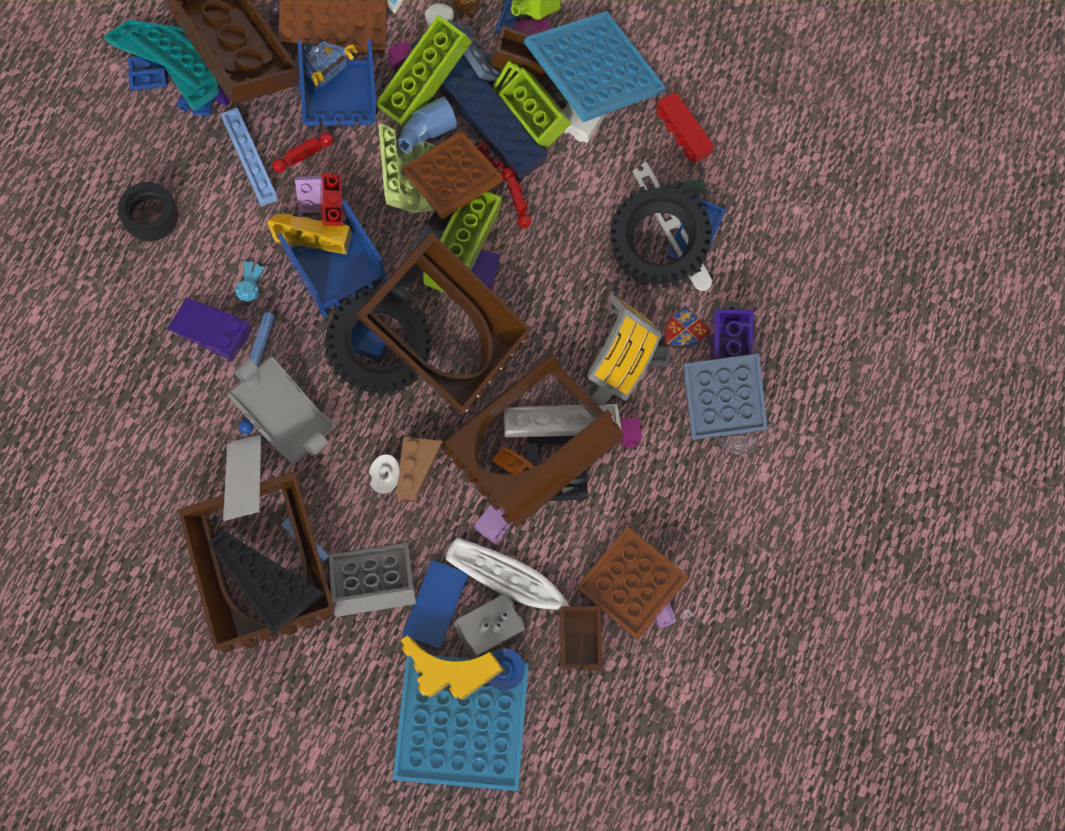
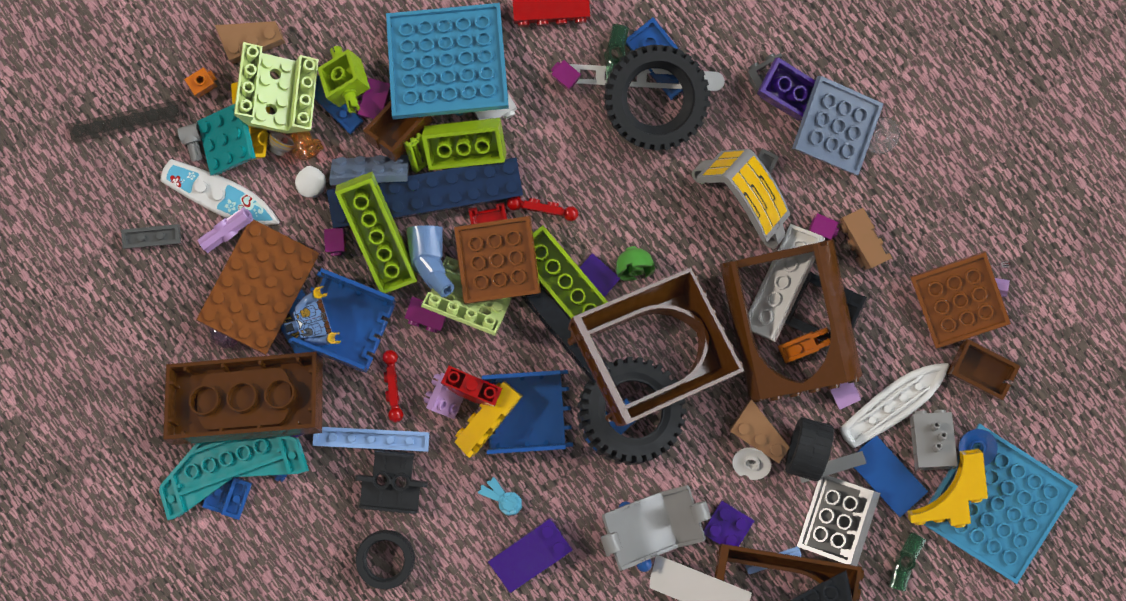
camera: 55 degrees left, 15 degrees up
(206, 188) = (391, 496): none -> black piece
(262, 337) = (564, 511): light blue axle -> none
(317, 483) = (727, 525): none -> dark purple plate
(349, 662) = (900, 573): none -> clear green piece
(372, 144) = (420, 315): none -> magenta brick
(418, 549) = (842, 464): none -> light grey sticker
(422, 511) = (809, 449): none -> black tyre
(507, 286) = (634, 263): none -> bright green cylinder
(637, 163) = (565, 75): none -> magenta brick
(638, 471) = (863, 239): none -> medium nougat wedge
(685, 330) = (753, 124): shield -> none

